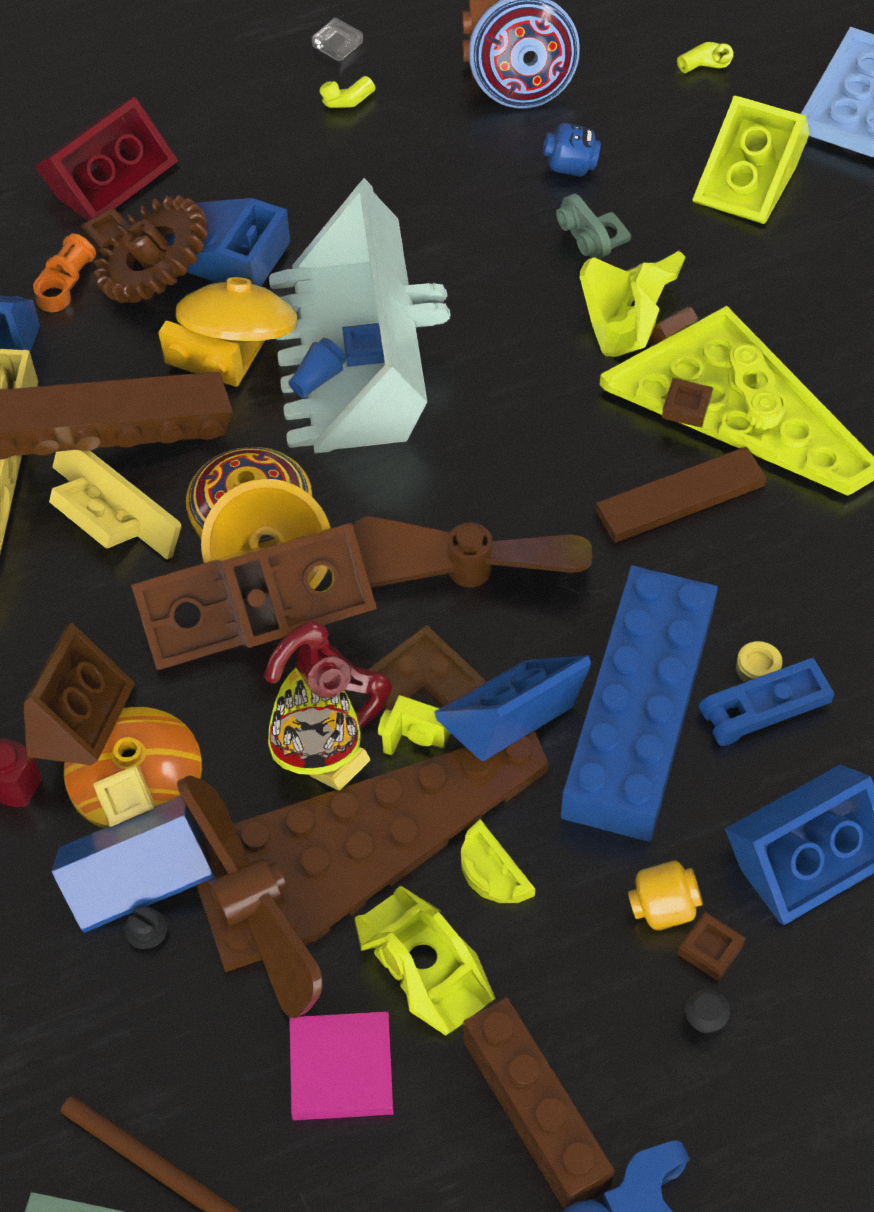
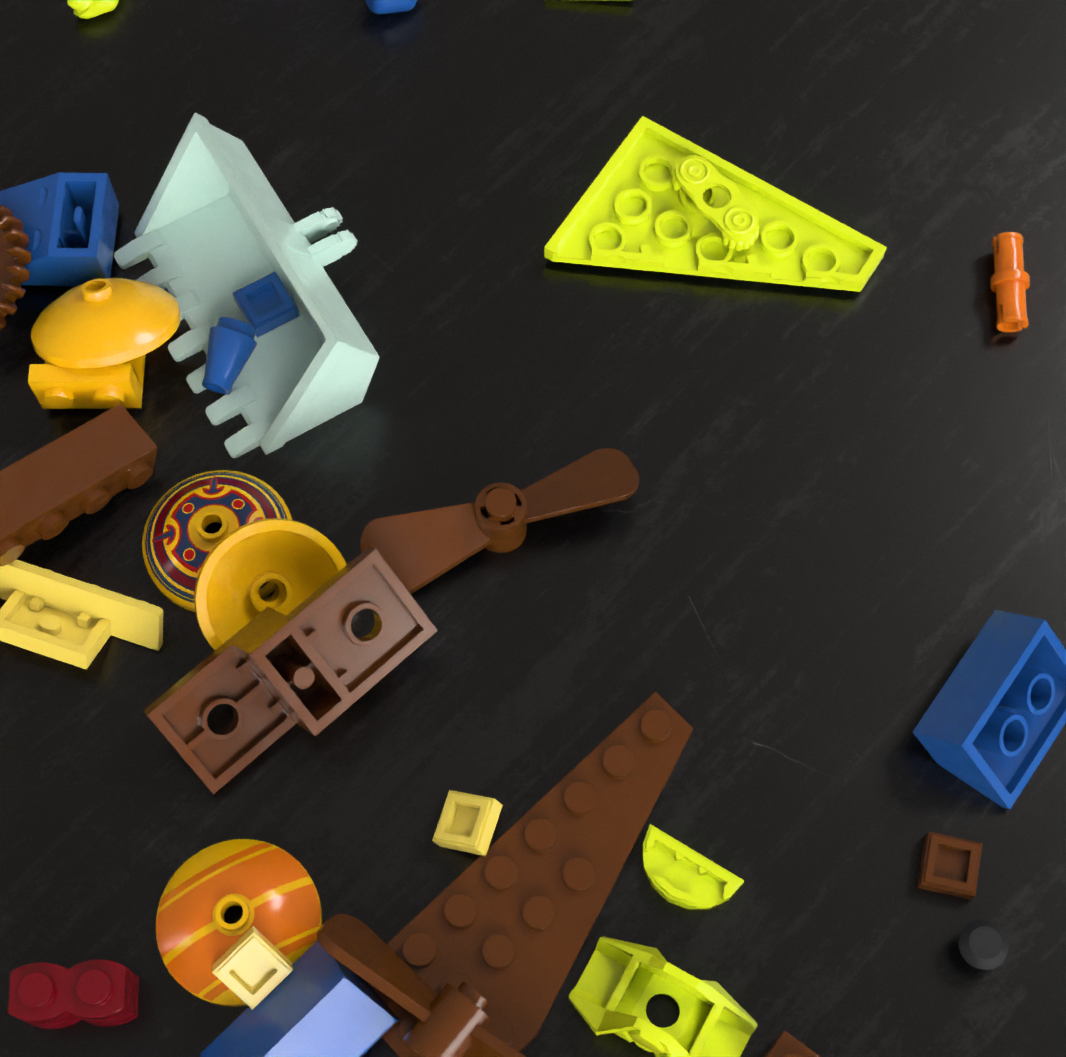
camera: 25 degrees left, 10 degrees up
(74, 701) = (147, 882): reddish brown slope -> none
(312, 731) = (422, 790): shield -> none
(327, 670) = (417, 729): dark red piece -> none
(414, 721) = (538, 739): neon yellow bracket -> none
(427, 663) = (505, 662): clear orange tile -> none
(514, 703) = (627, 677): blue slope -> none
(589, 229) = (449, 72): sand green bracket -> none
(610, 296) = (510, 141): neon yellow piece -> none
(639, 704) = (761, 622): blue brick -> none
(665, 895) = (884, 832): yellow head -> none
(672, 325) = (594, 162): reddish brown tile -> none
(680, 494) = (687, 356): reddish brown tile -> none
(687, 402) = (654, 248): reddish brown tile -> none
(757, 660) = (855, 522): light yellow tile -> none
(766, 700) = (885, 562): blue plate -> none

